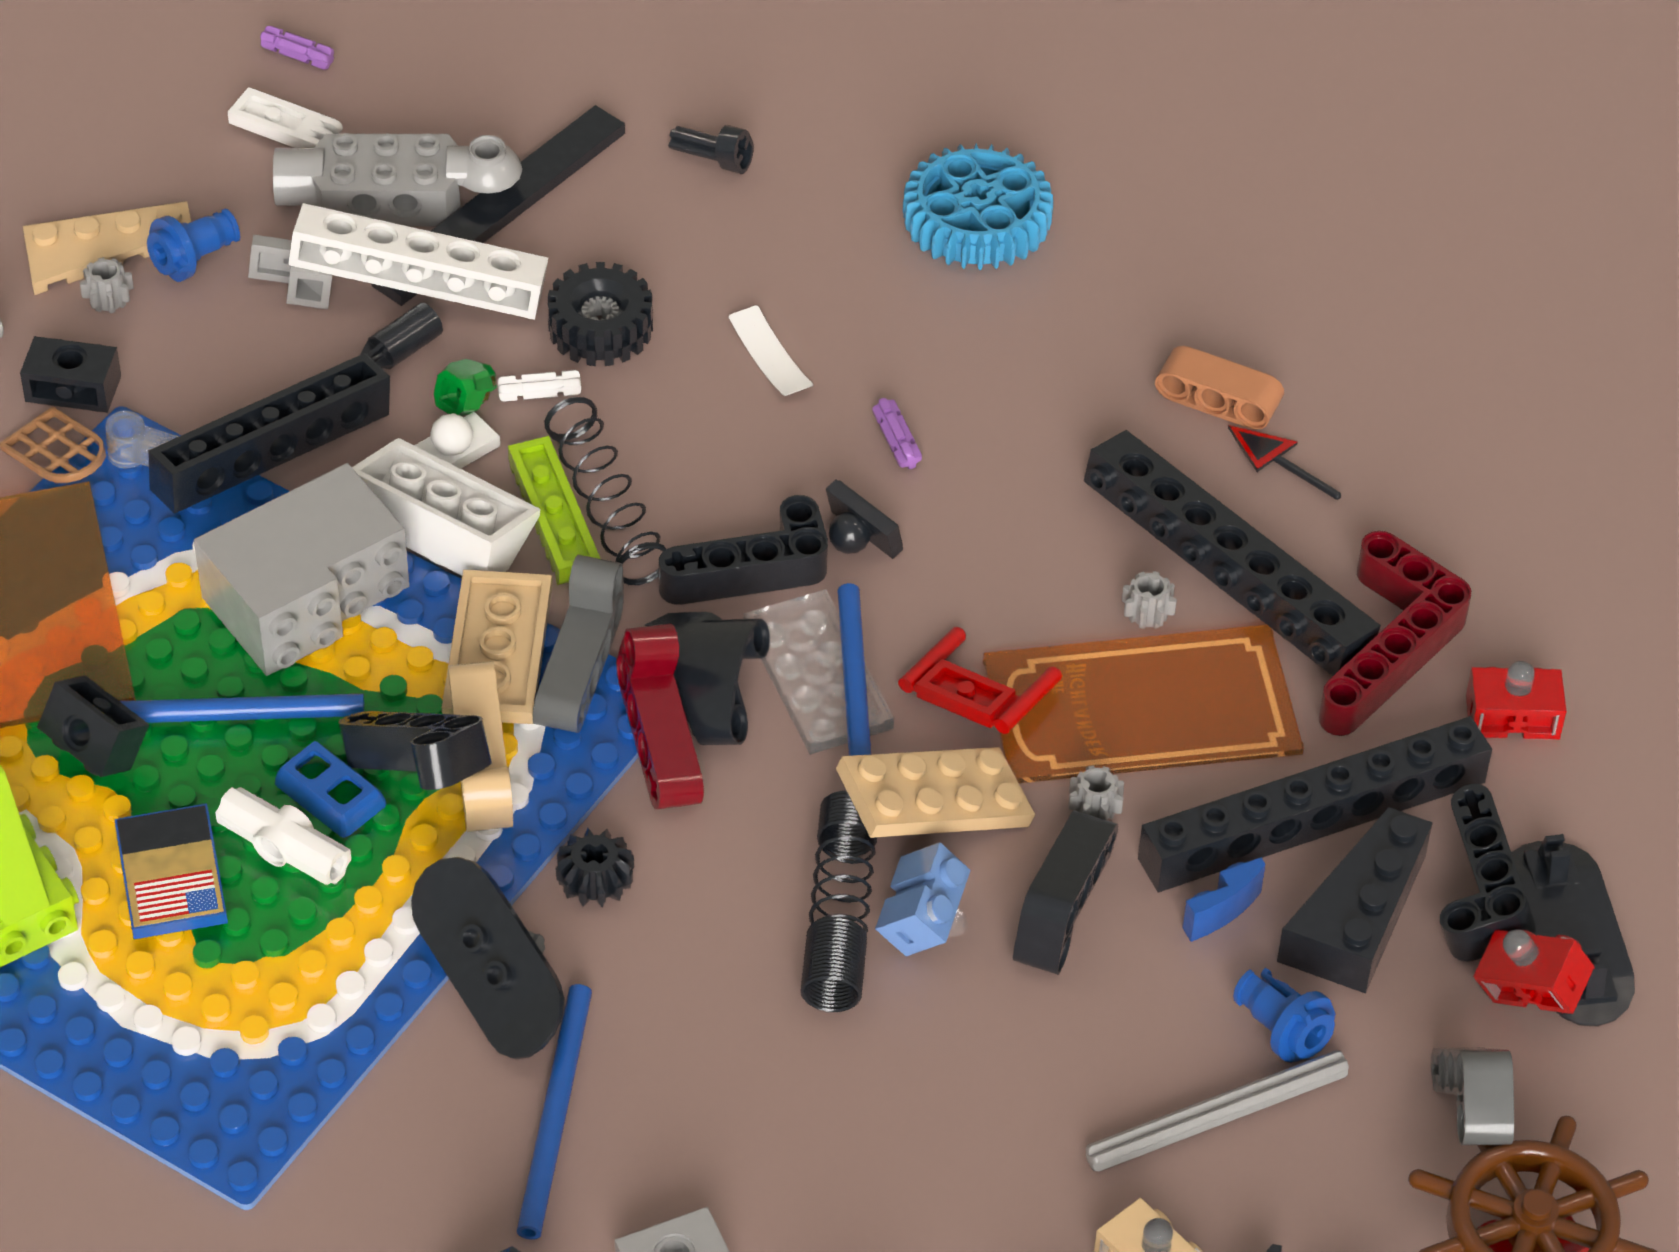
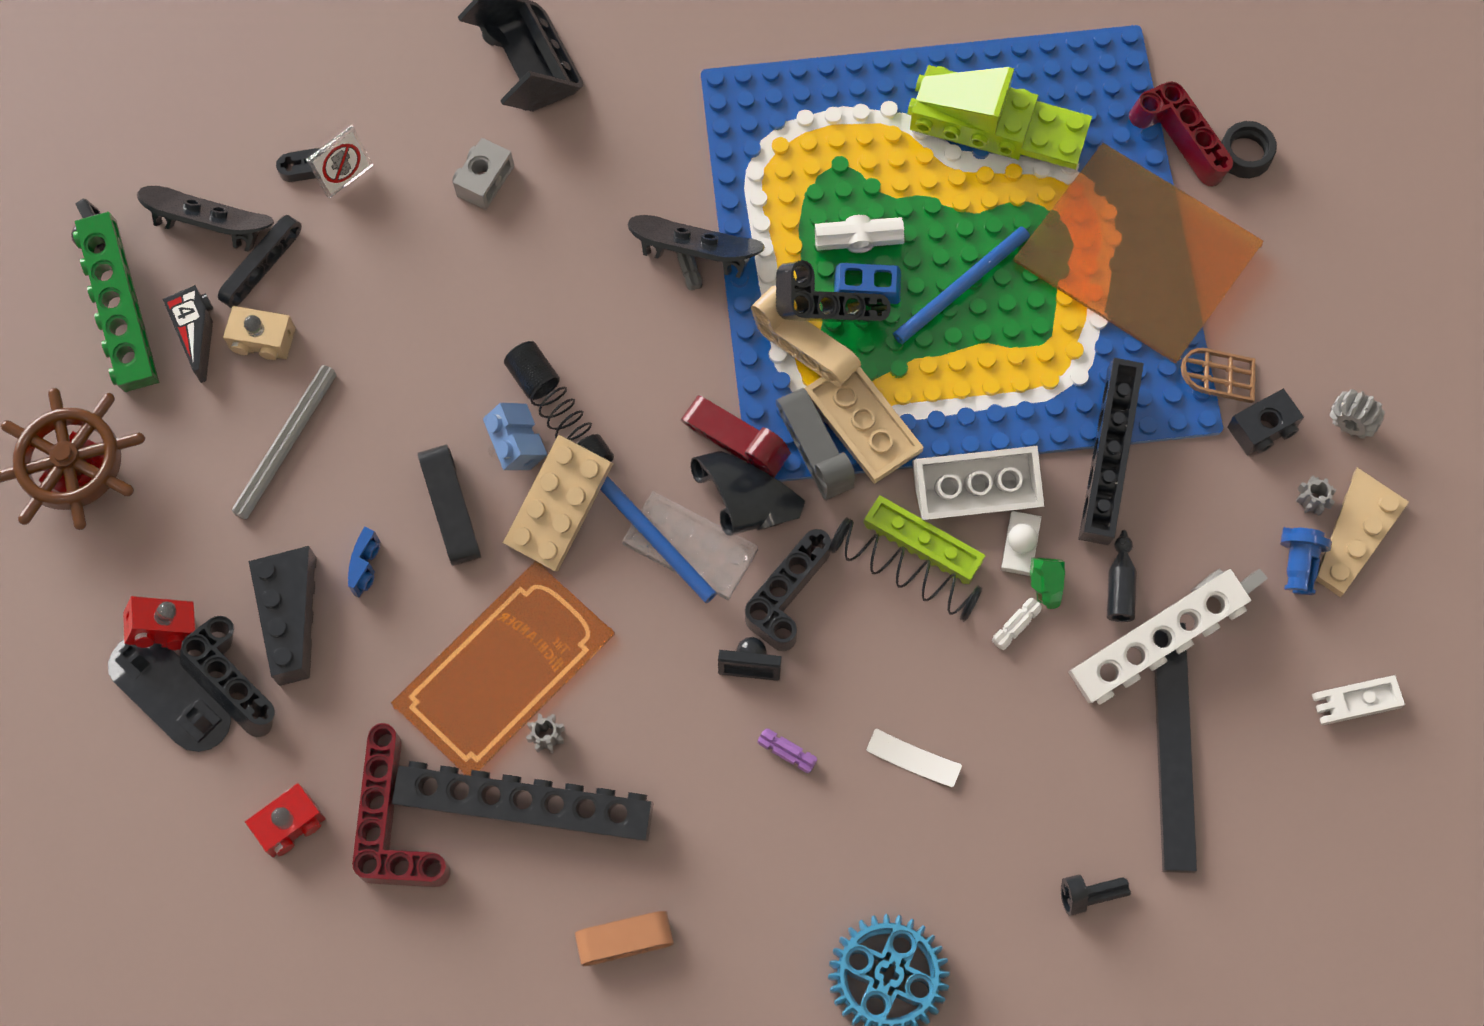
camera: 145 degrees right, 20 degrees up
(92, 726) = (1006, 211): black brick -> none
(130, 439) = (1166, 399): clear piece -> none
(170, 871) = (896, 183): tile -> none
(297, 47) = (1420, 771): medium lavender axle -> none
(302, 567) = (997, 371): light grey piece -> none
(392, 175) = (1247, 699): light grey brick -> none
(554, 1112) = (606, 211): blue piece -> none
(594, 867) = (687, 341): black gear -> none
(605, 292) = (1024, 678): black bush -> none
(971, 693) = (597, 589): red plate -> none
(1096, 793) = (474, 567): light grey gear -> none
(1264, 448) = (567, 917): black piece -> none
(1297, 1022) = (268, 508): blue piece -> none
(1313, 803) = (352, 659): black brick -> none
(1482, 1090) = (143, 513): beam -> none

